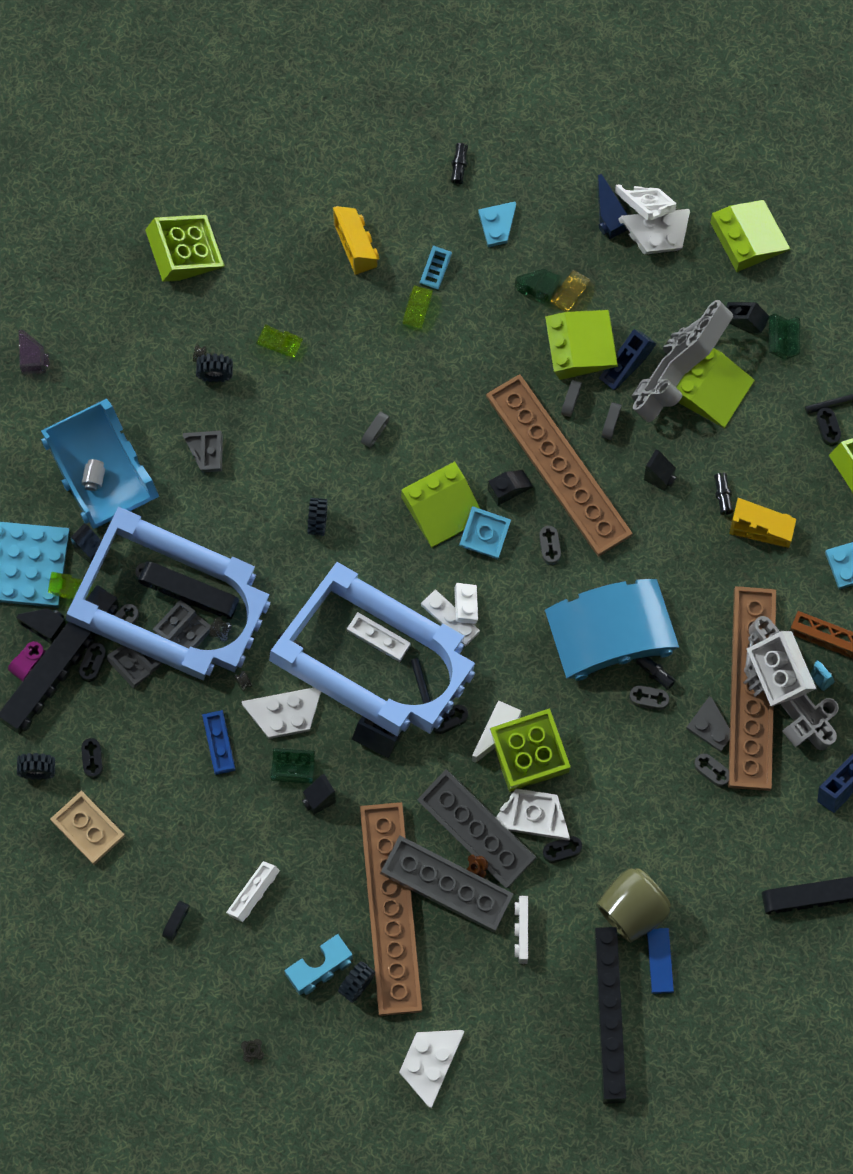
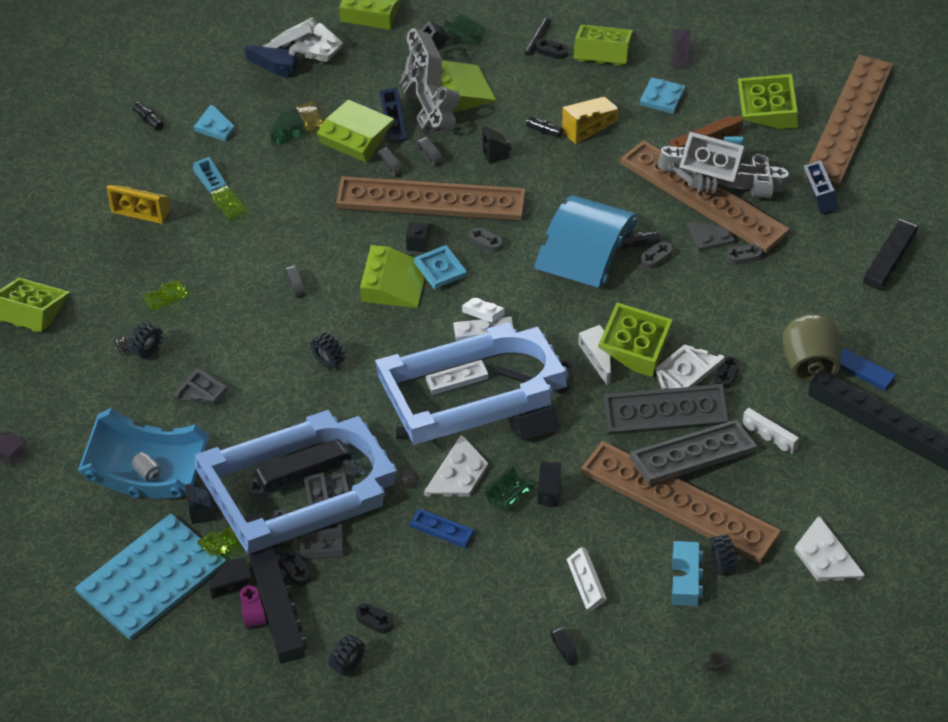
camera: 50 degrees left, 20 degrees down
(87, 827) = (429, 657): tan plate -> none
(481, 863) = (696, 419): reddish brown plate -> none

